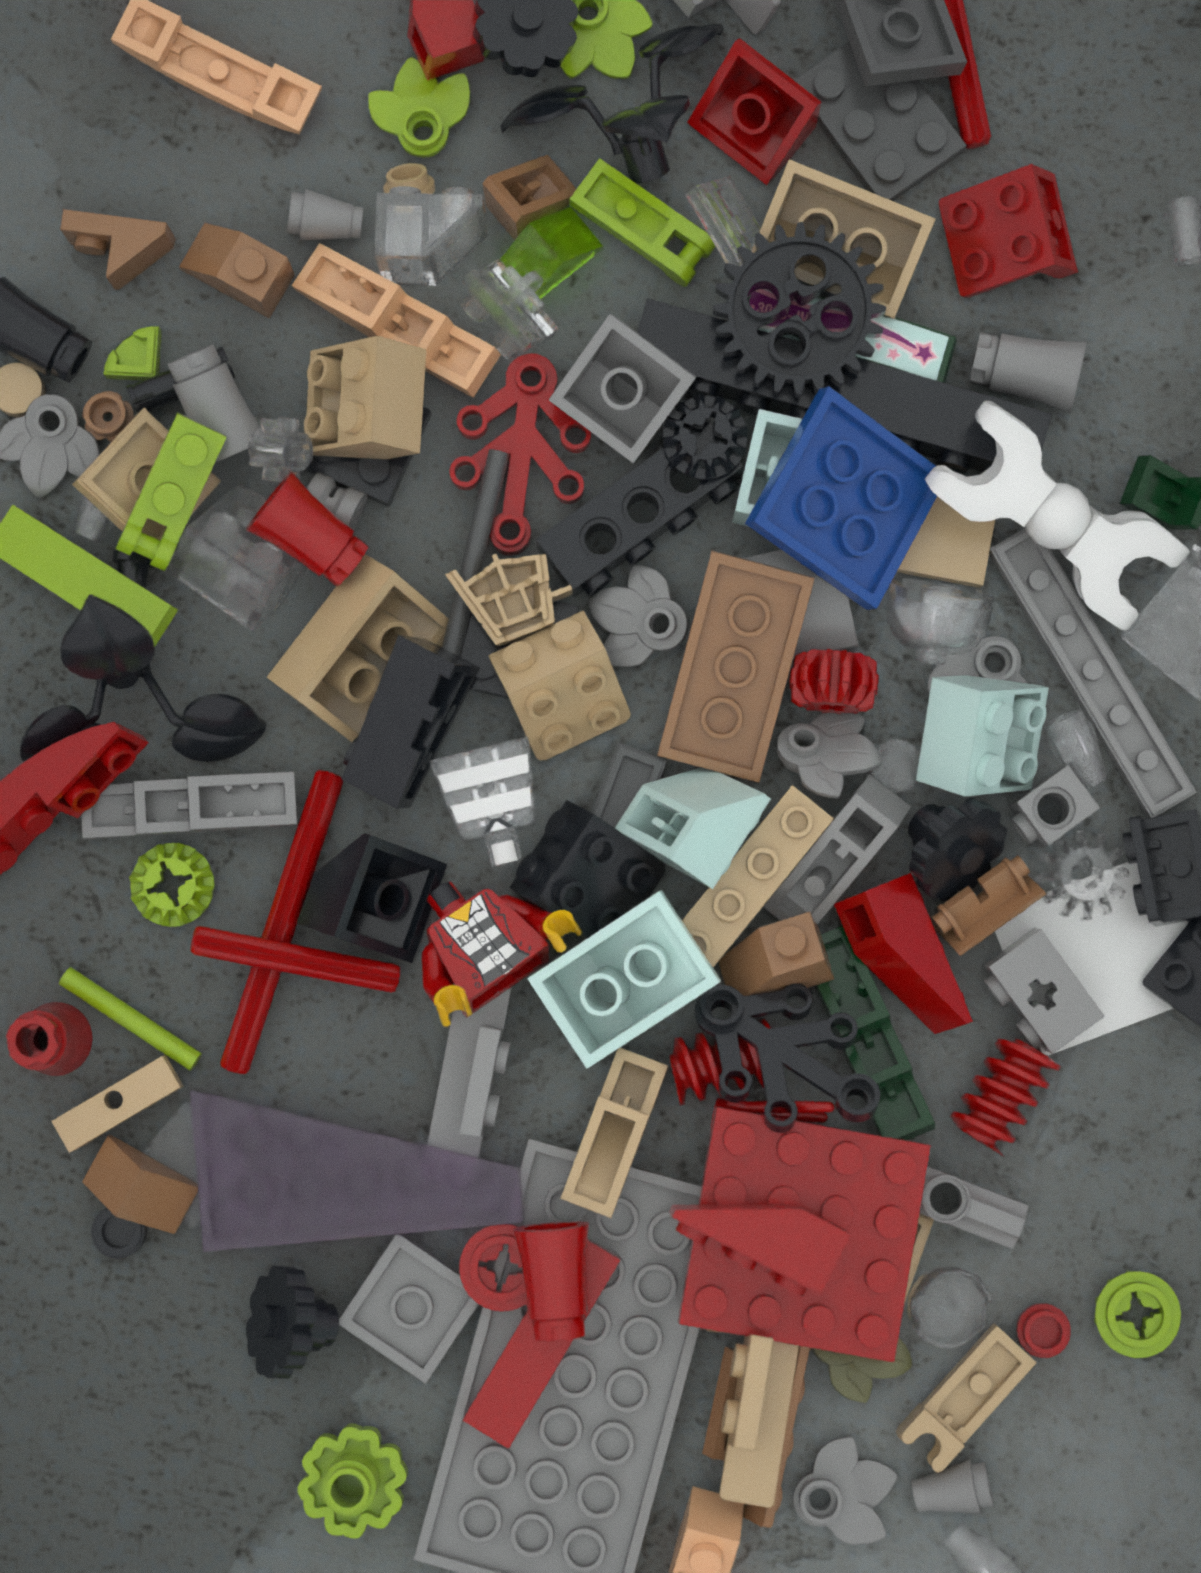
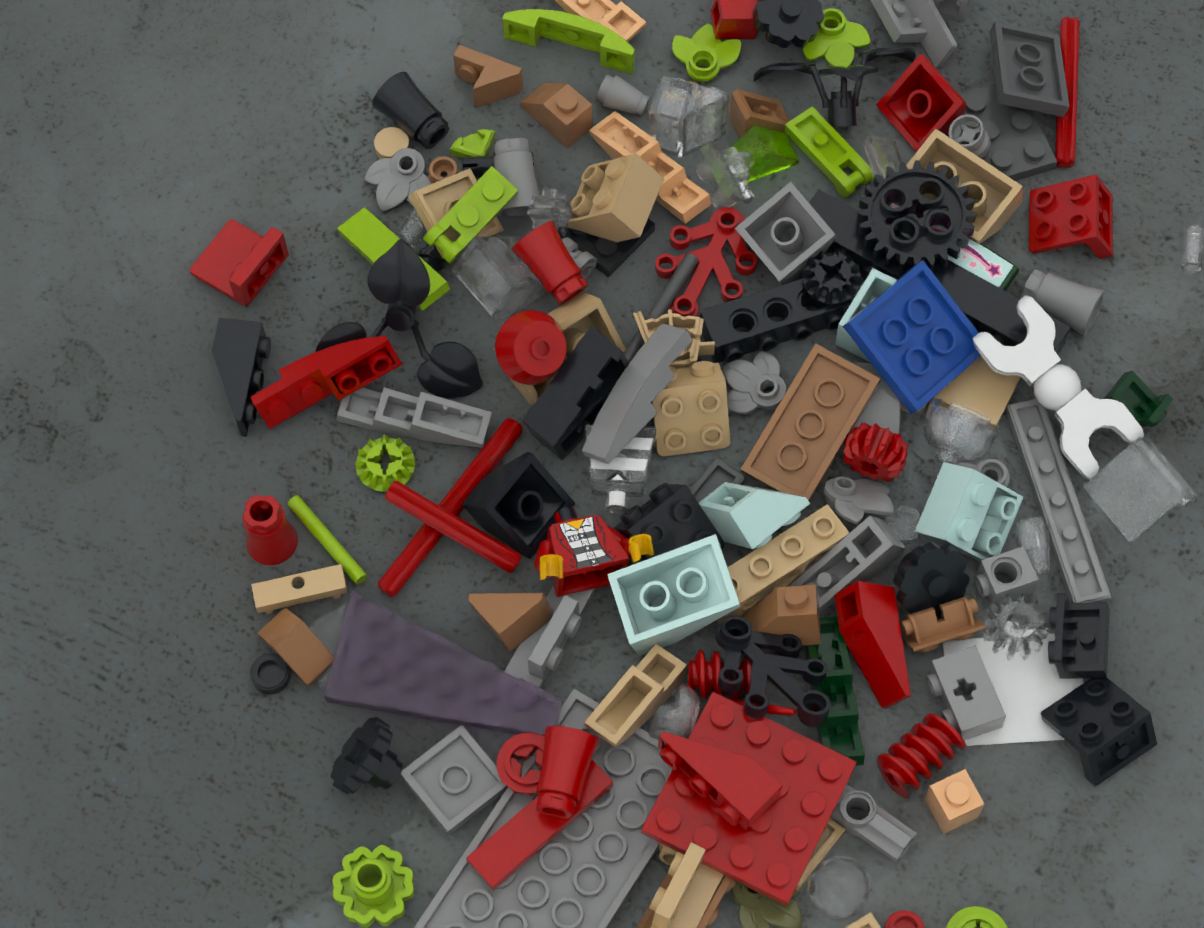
camera: 15 degrees right, 20 degrees down
(154, 139) = (531, 24): none -> lime slope
(323, 682) = (531, 347): none -> red cone
(413, 1069) = (512, 615): none -> medium nougat slope
(482, 719) = (629, 402): none -> light grey slope
(675, 1146) = (679, 716): none -> clear hair
(830, 145) = (966, 130): none -> light grey wheel
(1065, 1145) = (954, 801): none -> light nougat brick

